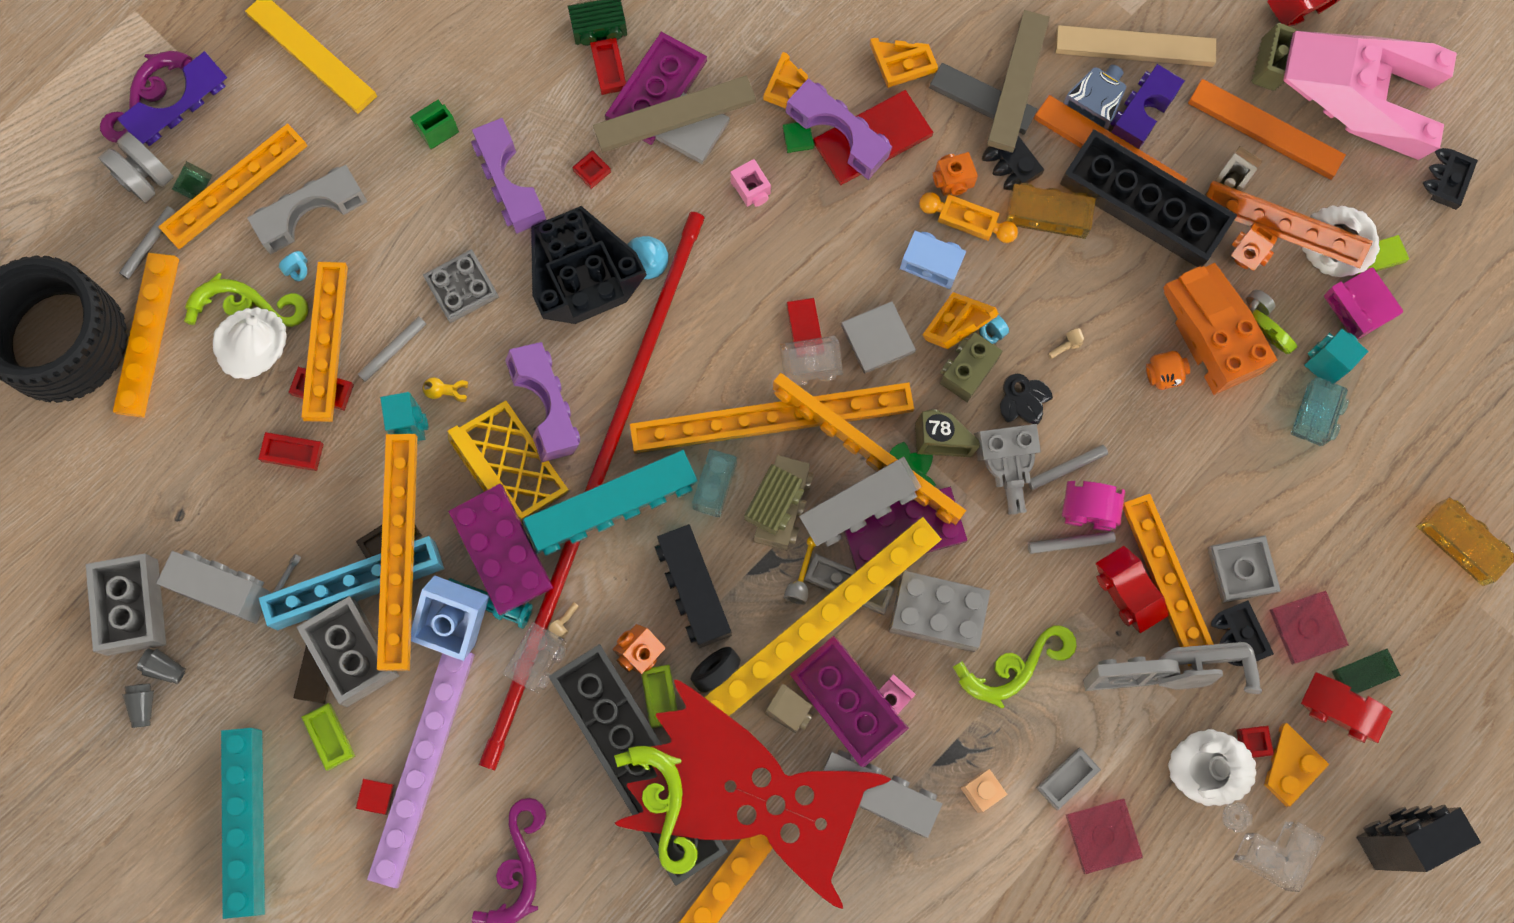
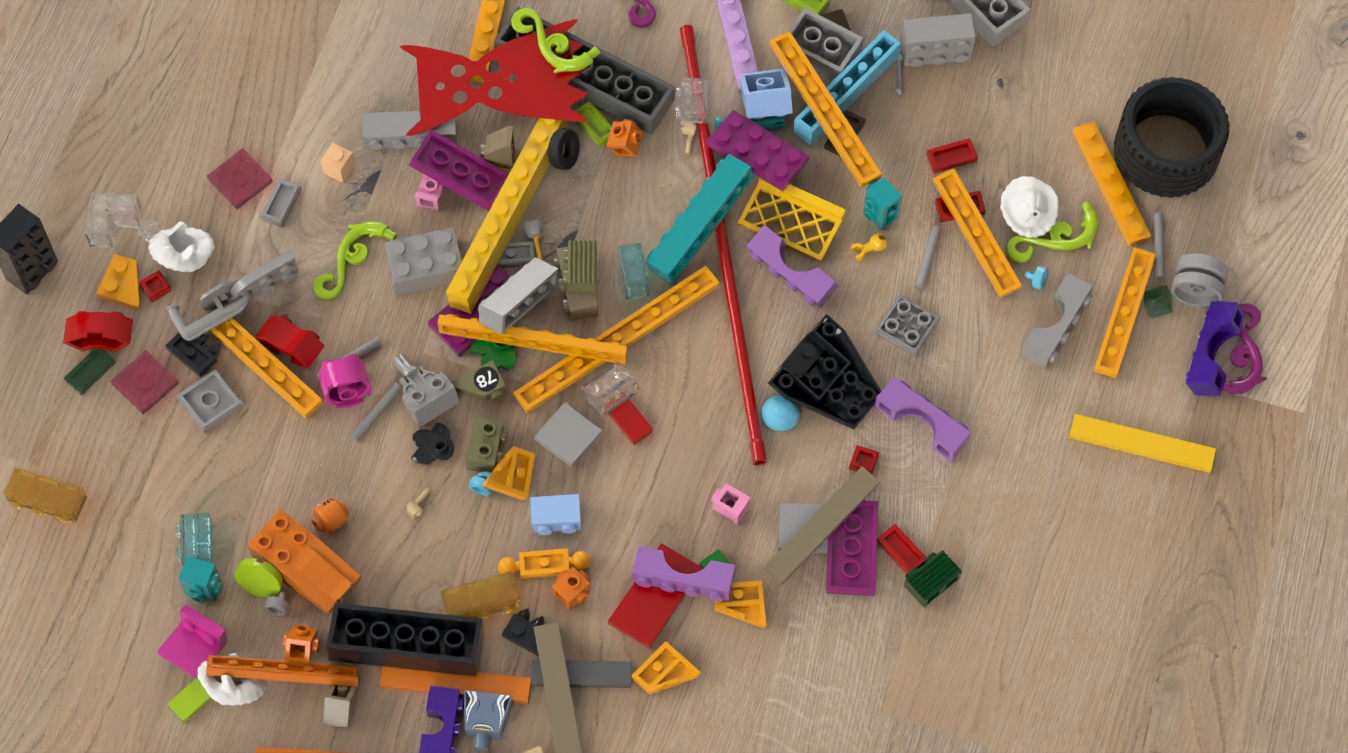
camera: 155 degrees right, 10 degrees down
(435, 124) = (1007, 431): green piece -> none
(694, 586) = (610, 198): black brick -> none

